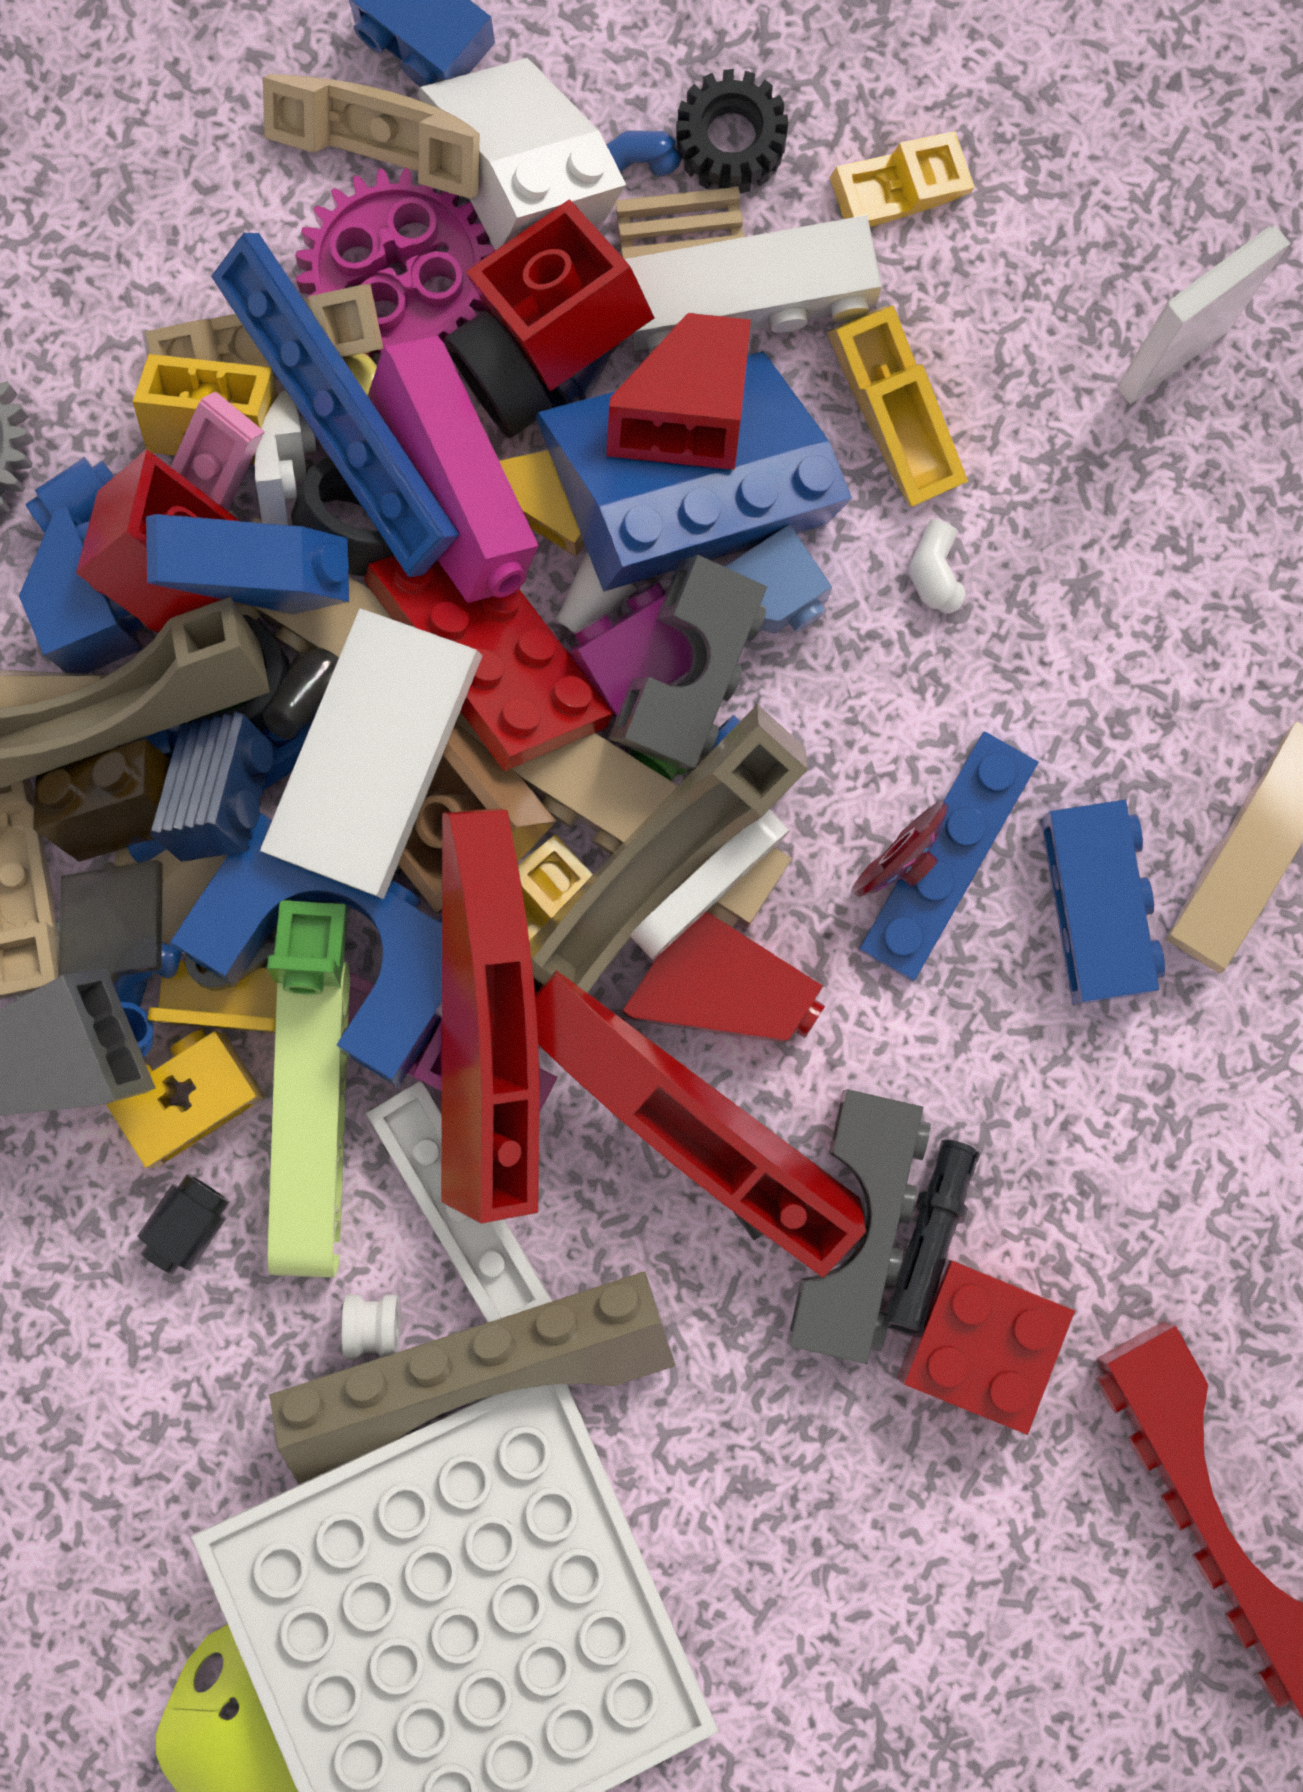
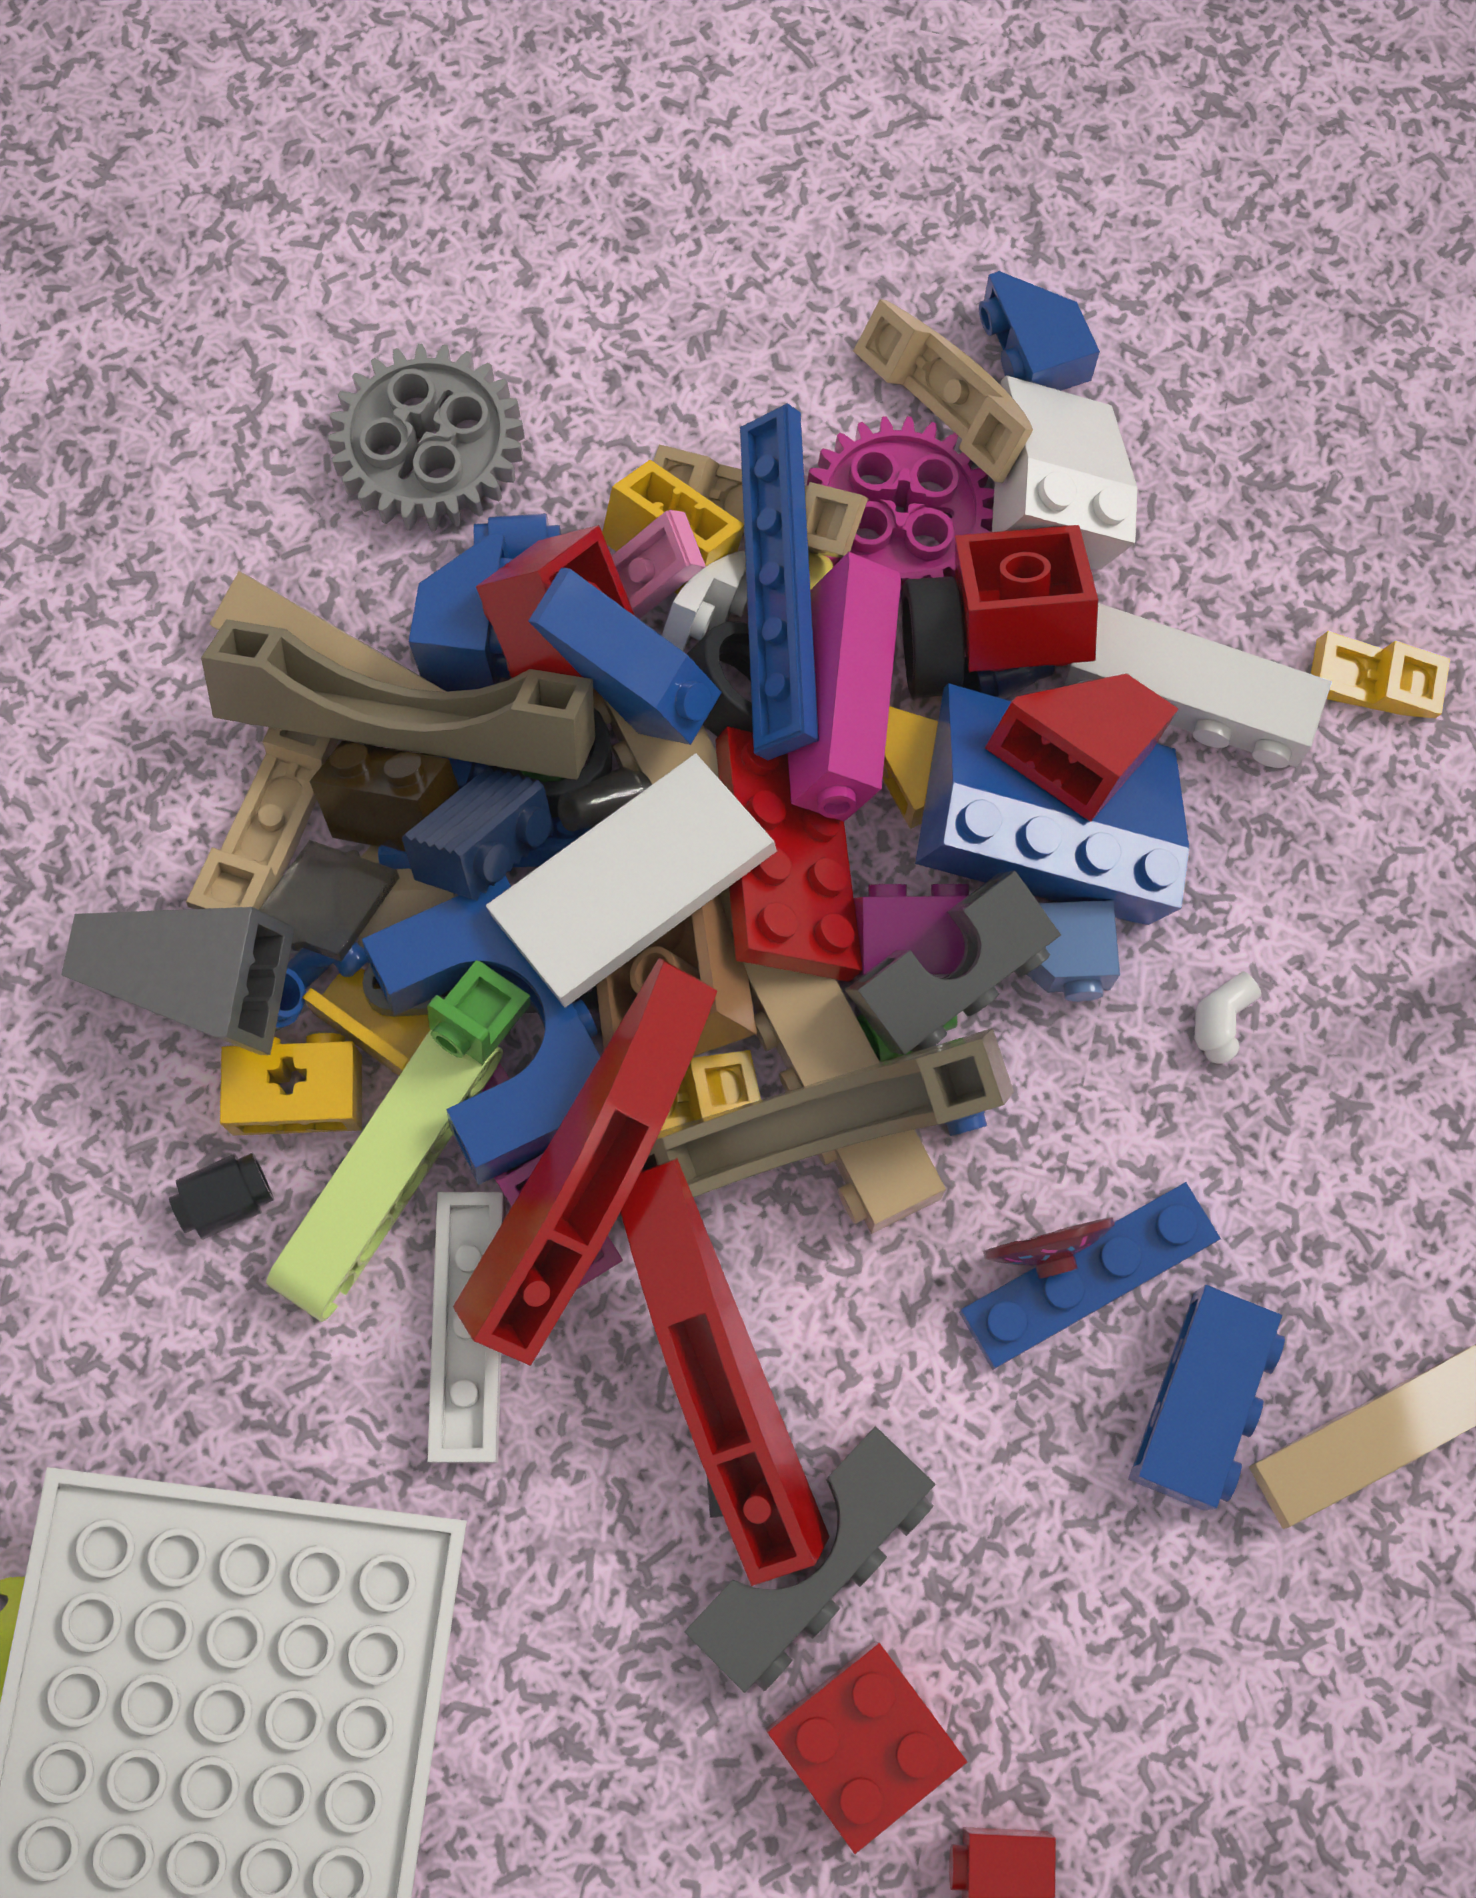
camera: 30 degrees right, 10 degrees down
(370, 1326) = (324, 1384): white wheel -> none
(584, 1338) = (509, 1511): dark tan arch -> none
(587, 600) = (899, 867): white cone -> none
(643, 147) = (1167, 525): blue arm -> none
(674, 204) = (1169, 588): tan tile -> none
(708, 884) = (859, 1164): white beam -> none
(725, 986) = (819, 1268): red slope -> none
(739, 98) = (1262, 524): black tyre -> none
(898, 404) = (1269, 858): yellow slope -> none
(939, 1213) = (892, 1596): black pin -> none

